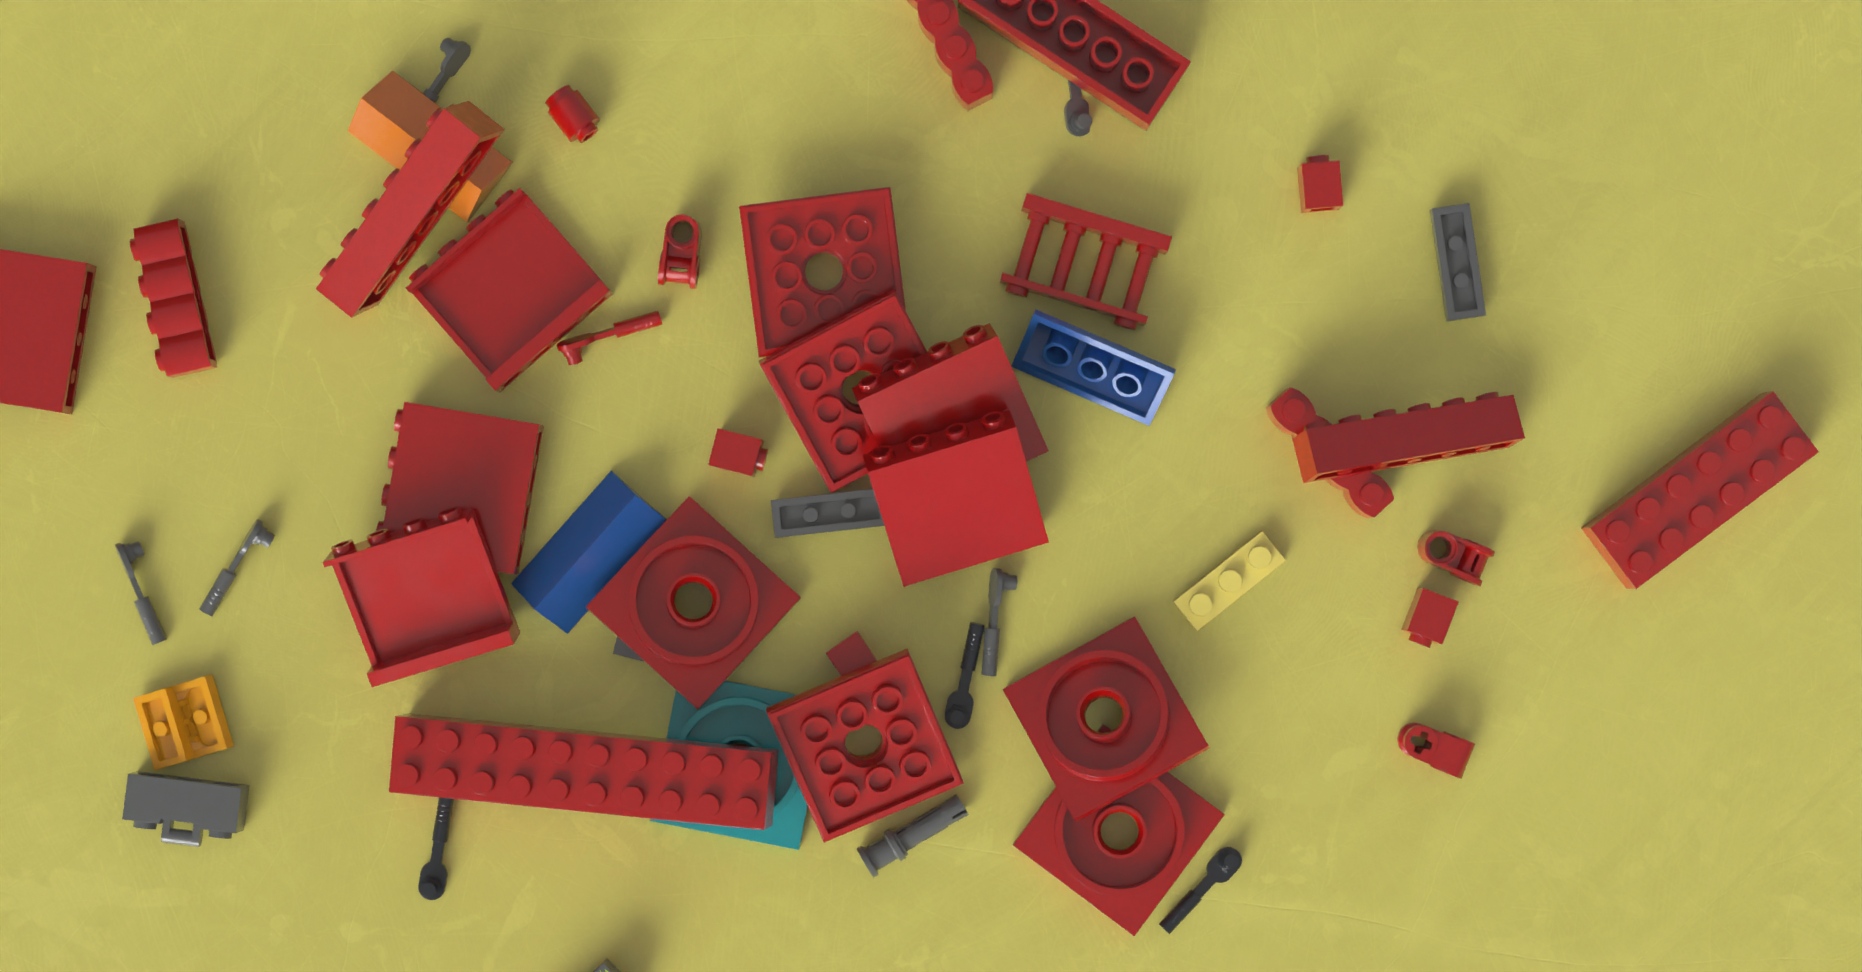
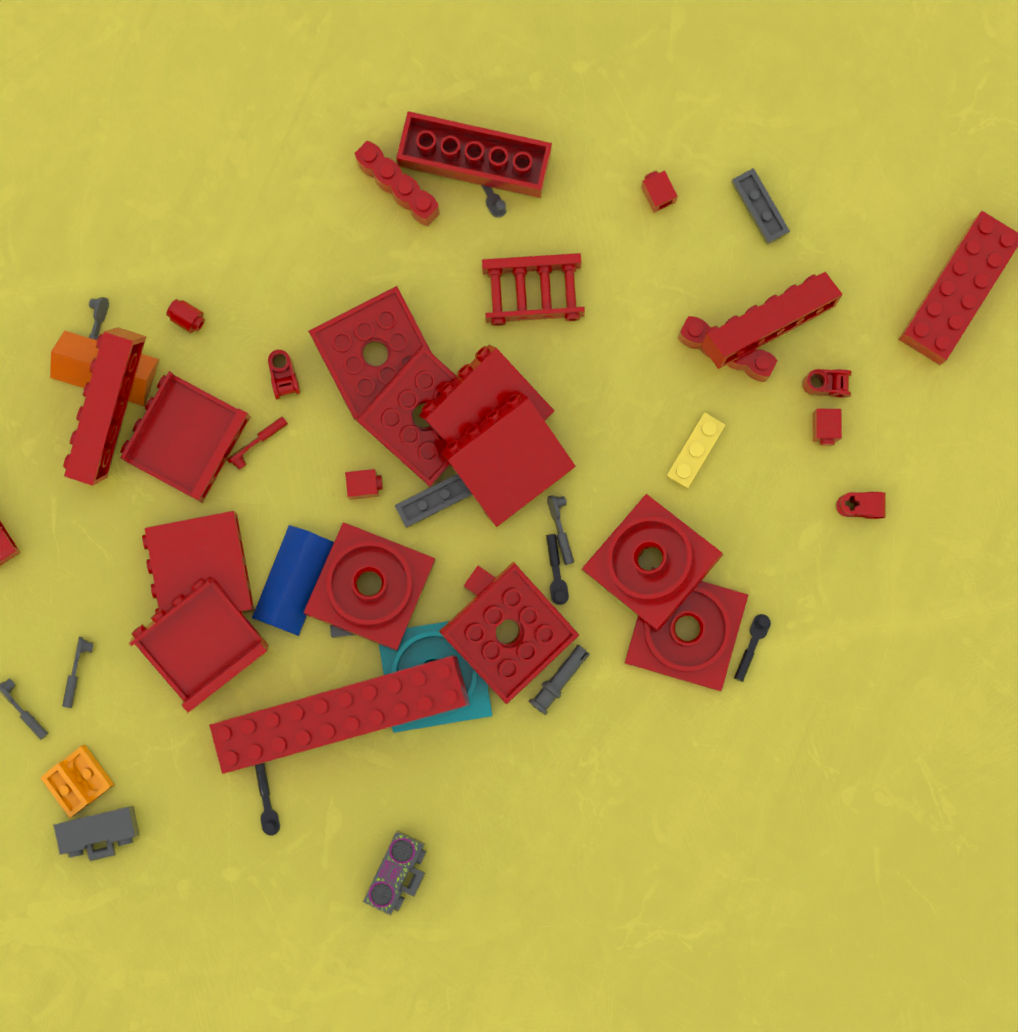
camera: 20 degrees left, 5 degrees down
(1093, 367) = (562, 350): blue slope -> none

